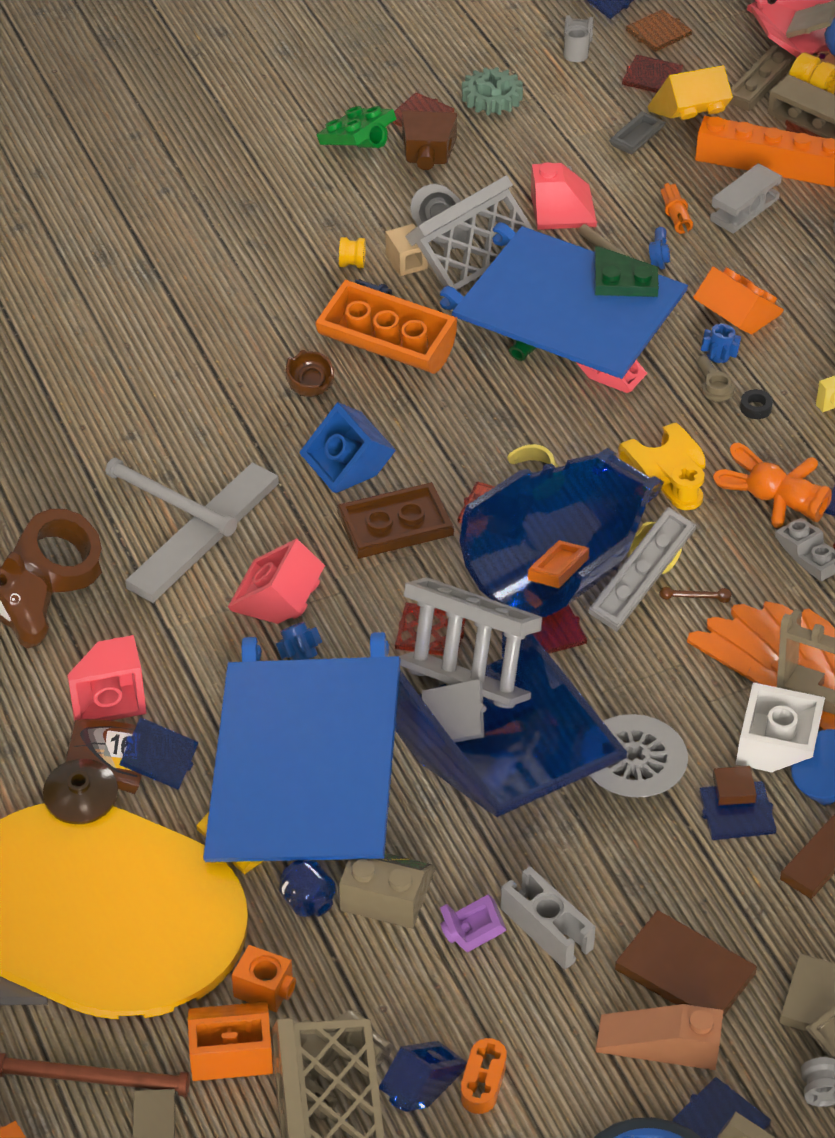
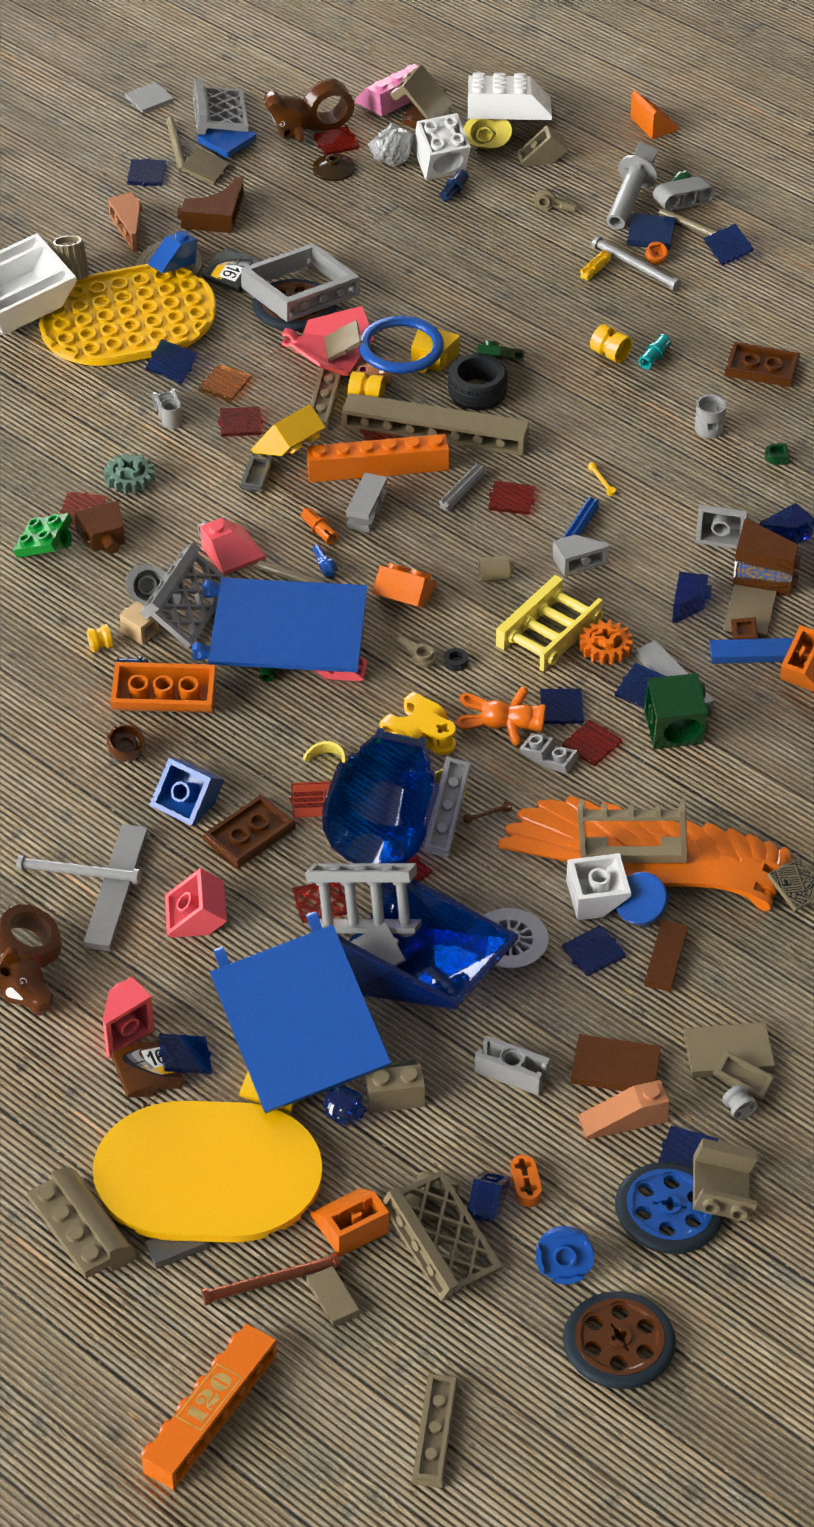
camera: 25 degrees left, 0 degrees up
(80, 803) = (148, 1108): dark brown dish -> none
(259, 965) = (349, 1164): orange brick -> none
(299, 642) = (237, 942): blue gear -> none
(473, 923) = (466, 1087): medium lavender bracket -> none
(558, 564) = (387, 823): orange tile -> none
(624, 275) = (318, 593): dark green wing -> none
(721, 343) = (409, 621): blue gear -> none
(734, 785) = (585, 934): reddish brown tile -> none

